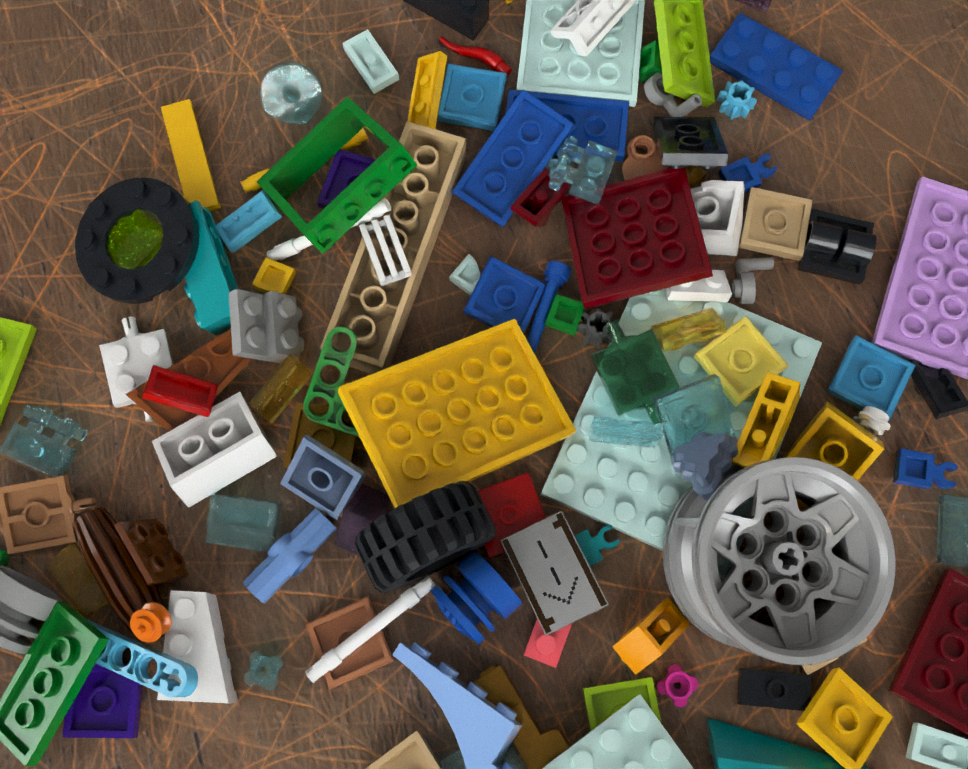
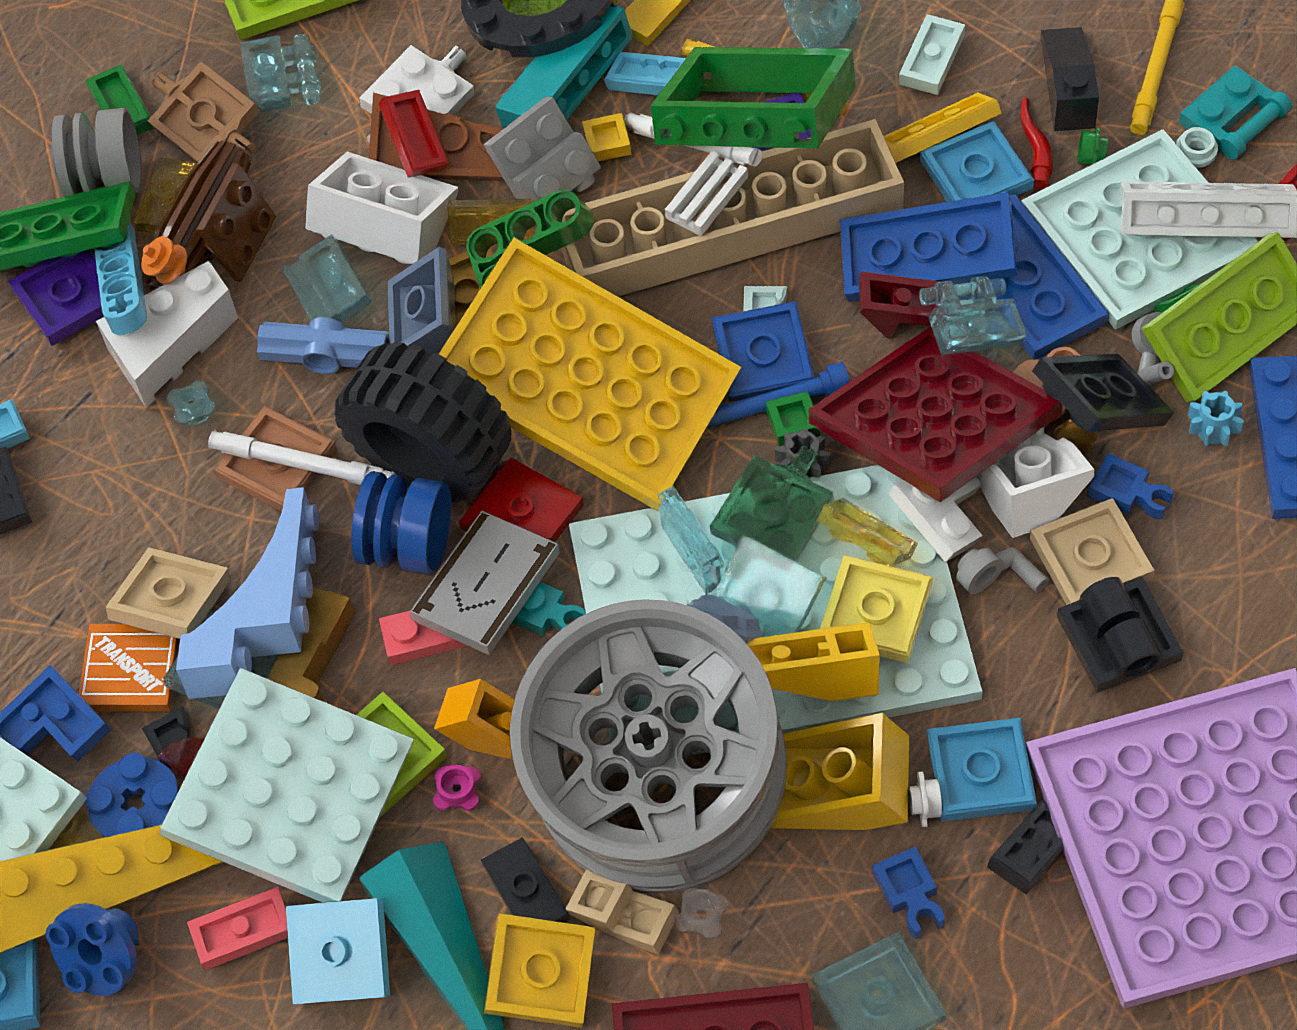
camera: 60 degrees right, 15 degrees down
(506, 29) = (1091, 147): none -> green plate

